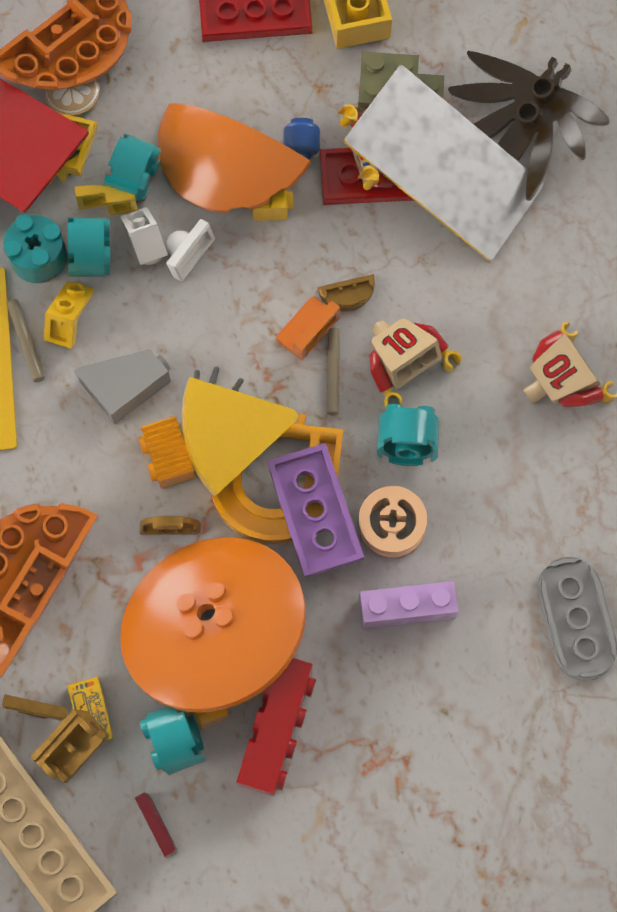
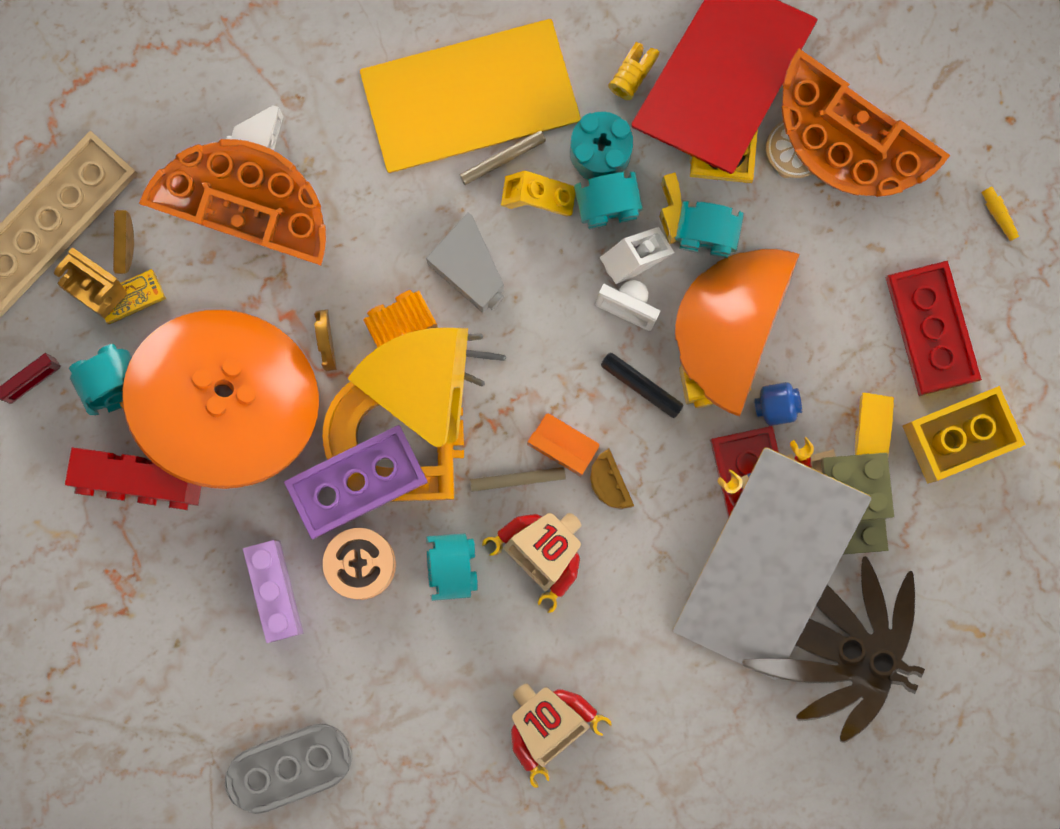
camera: 80 degrees right, 10 degrees up
(264, 251) = (642, 385): none -> black axle
(334, 67) = (874, 424): none -> yellow slope

